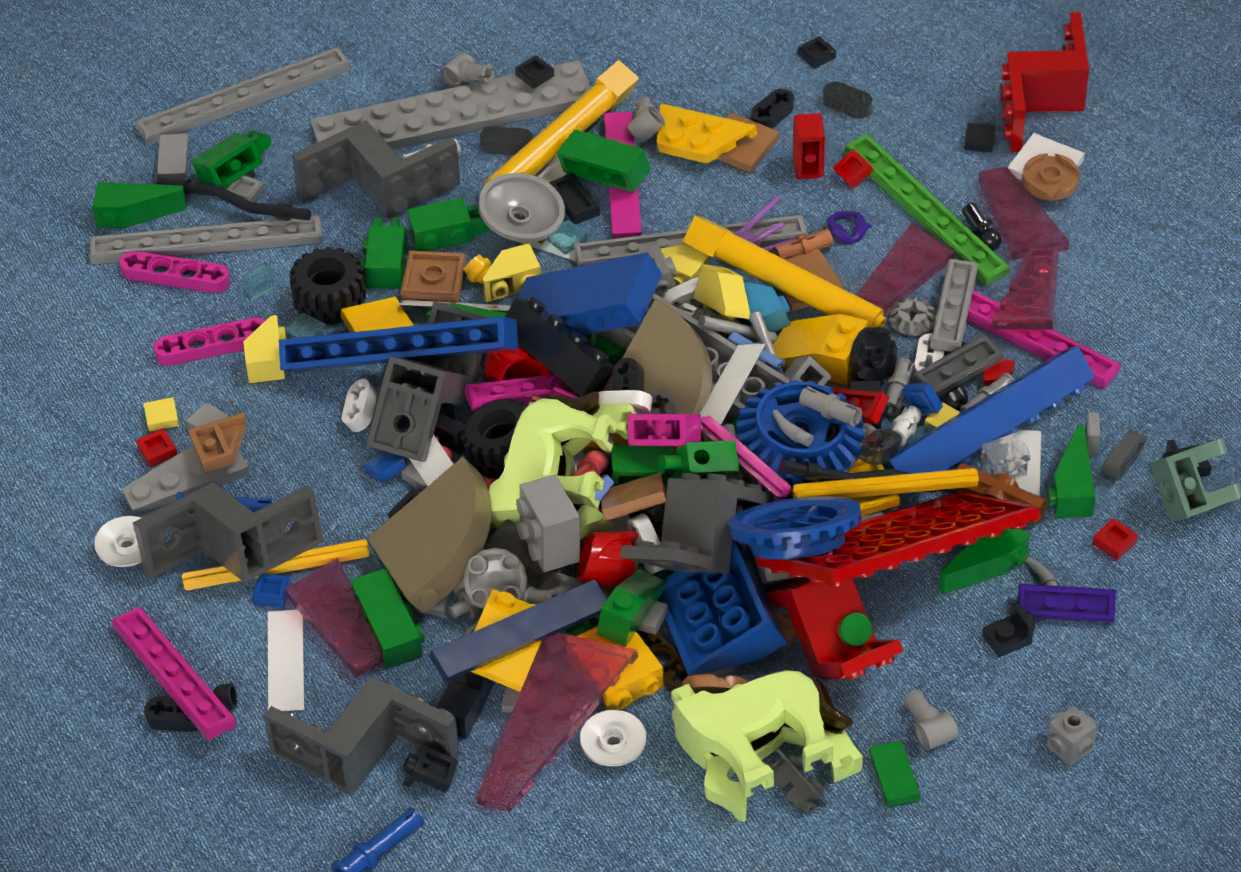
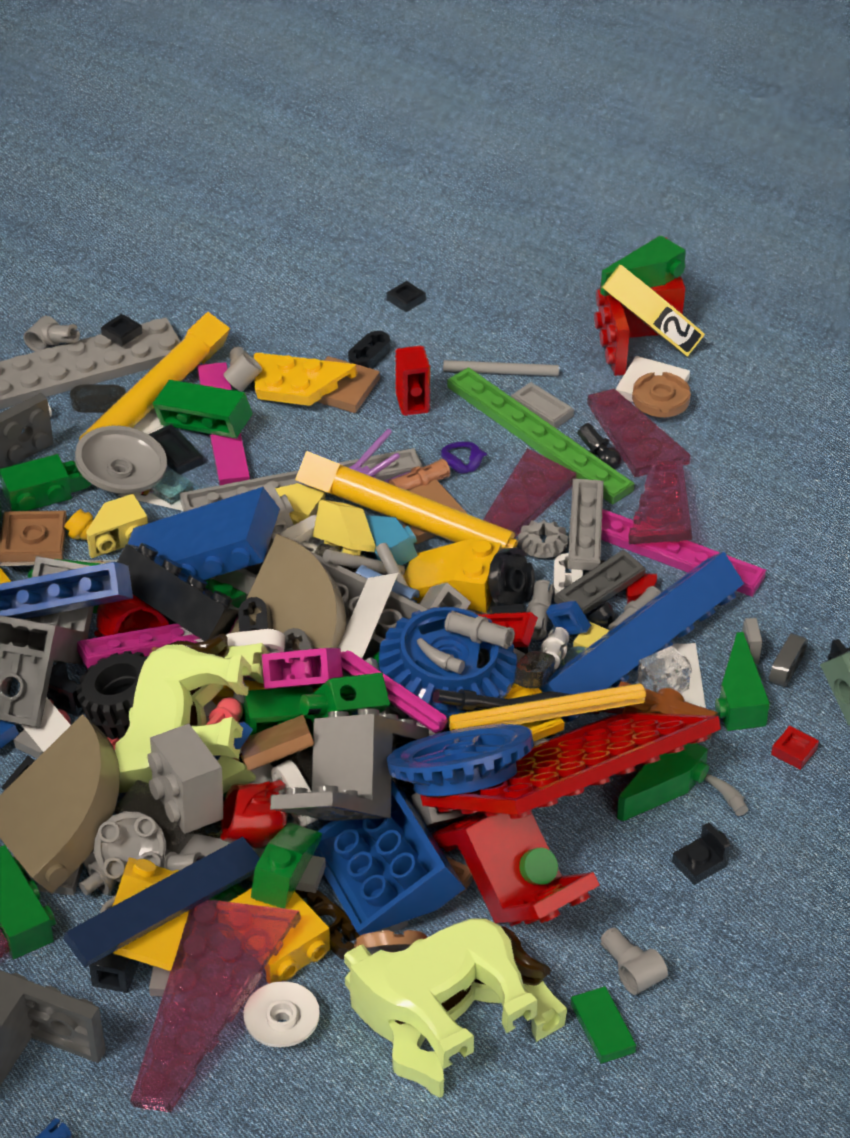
camera: 10 degrees left, 5 degrees down
(429, 768) = (73, 1069): black bracket -> none
(464, 704) = (107, 991): black brick -> none
(805, 791) = (506, 1054): dark grey hinge -> none
(847, 100) = (443, 337): clear smoke beam -> none
(853, 169) = (459, 401): red tile -> none
(900, 136) = (502, 368): none -> light grey bar
(934, 178) = (544, 404): none -> light grey tile
(979, 137) = (582, 363): black tile -> none
(1050, 46) = (652, 263): none -> green slope
(1054, 90) = (653, 310): none -> light yellow slope
(1068, 602) = (760, 818): dark purple tile -> none
(1071, 735) = (792, 963): light grey brick -> none

